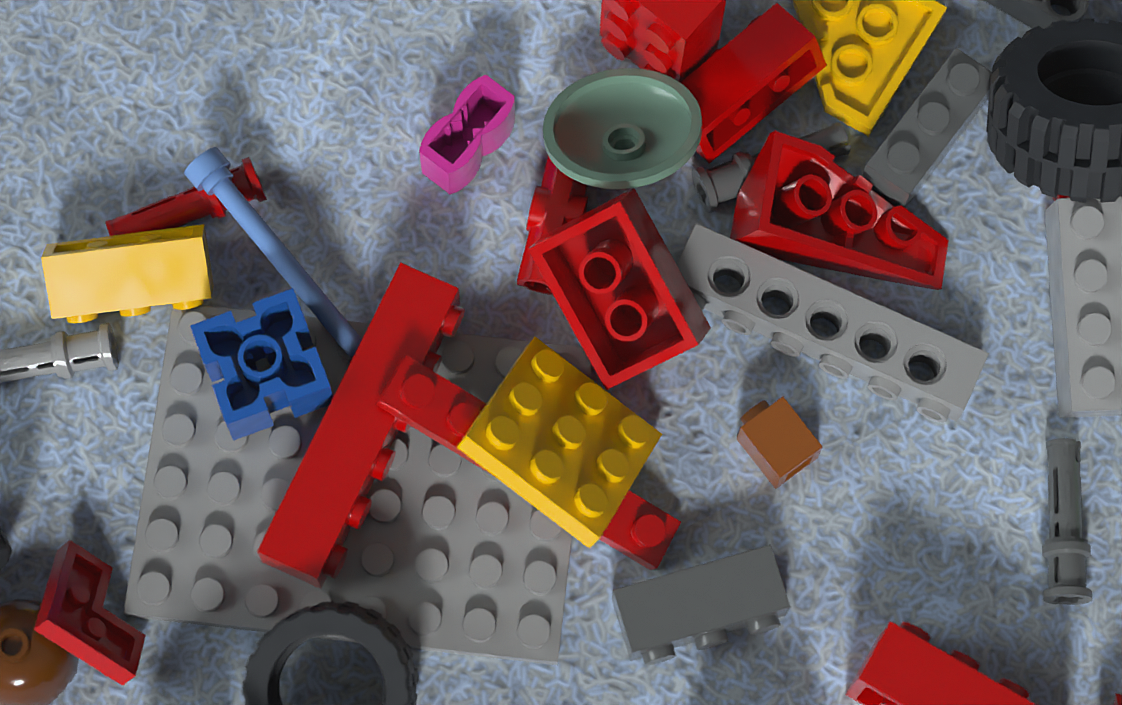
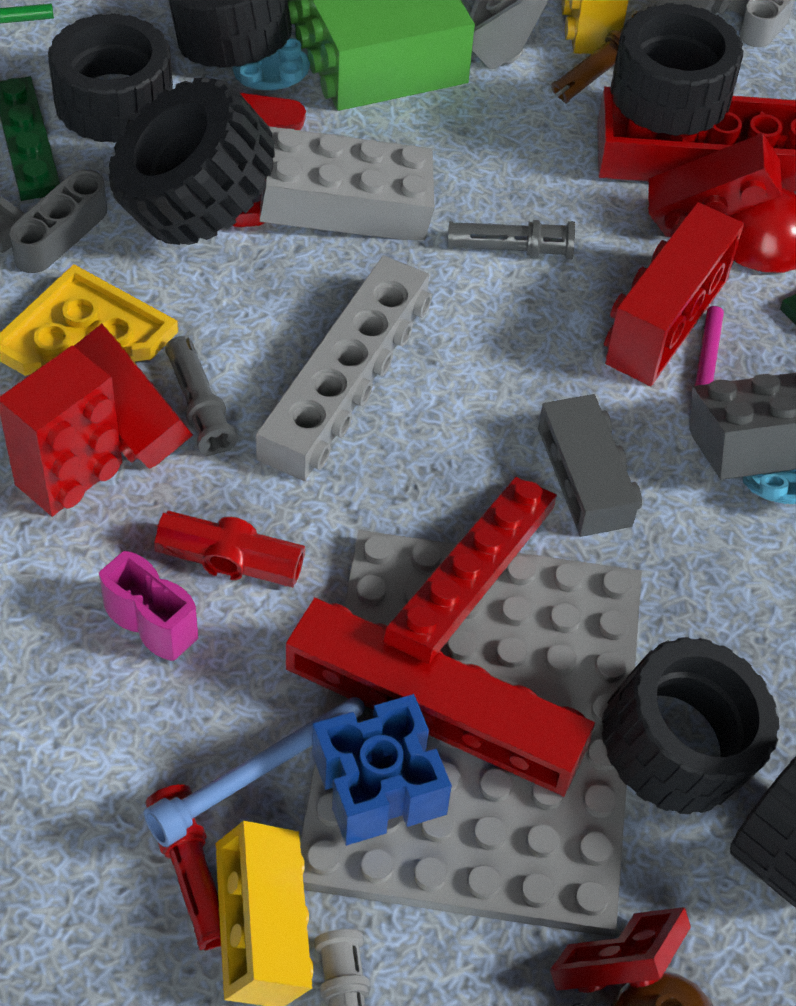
camera: 90 degrees left, 20 degrees down
(560, 442) = (460, 530): yellow plate -> none
(620, 289) = (318, 478): red brick -> none
(622, 128) = (169, 465): sand green dish -> none
(777, 440) = (448, 402): dark orange brick -> none
(821, 216) = (254, 355): red wedge -> none
(929, 129) = (183, 283): dark grey brick -> none

